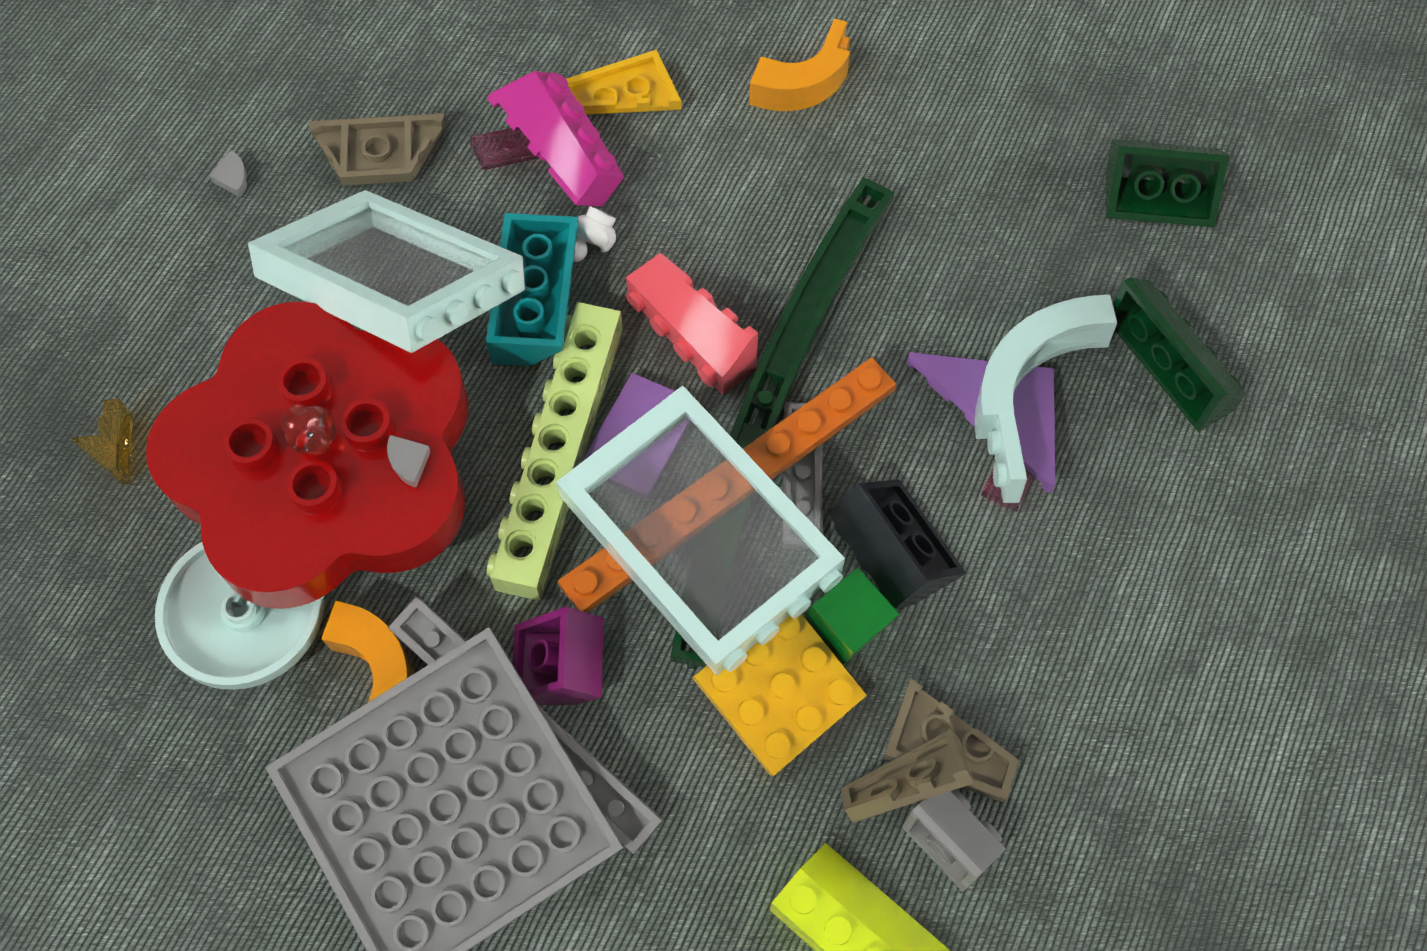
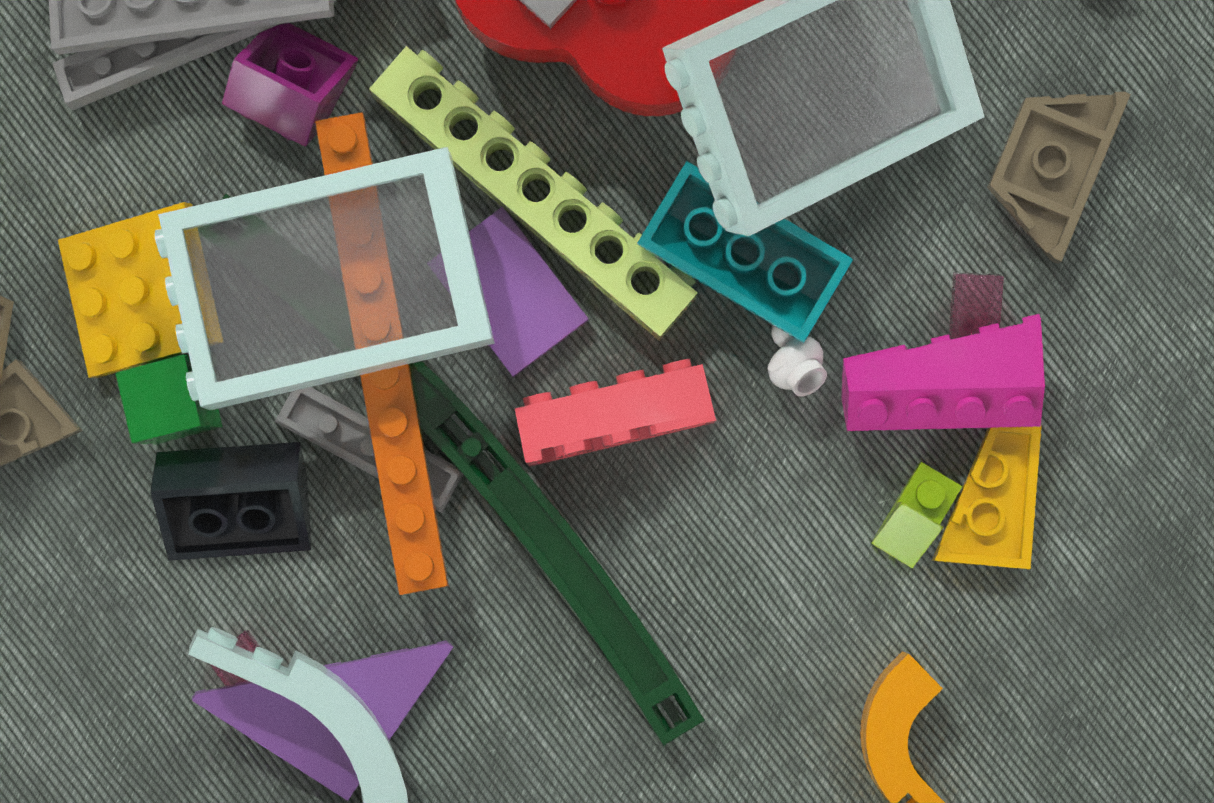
camera: 120 degrees right, 20 degrees up
(662, 129) = (916, 515): none -> lime slope

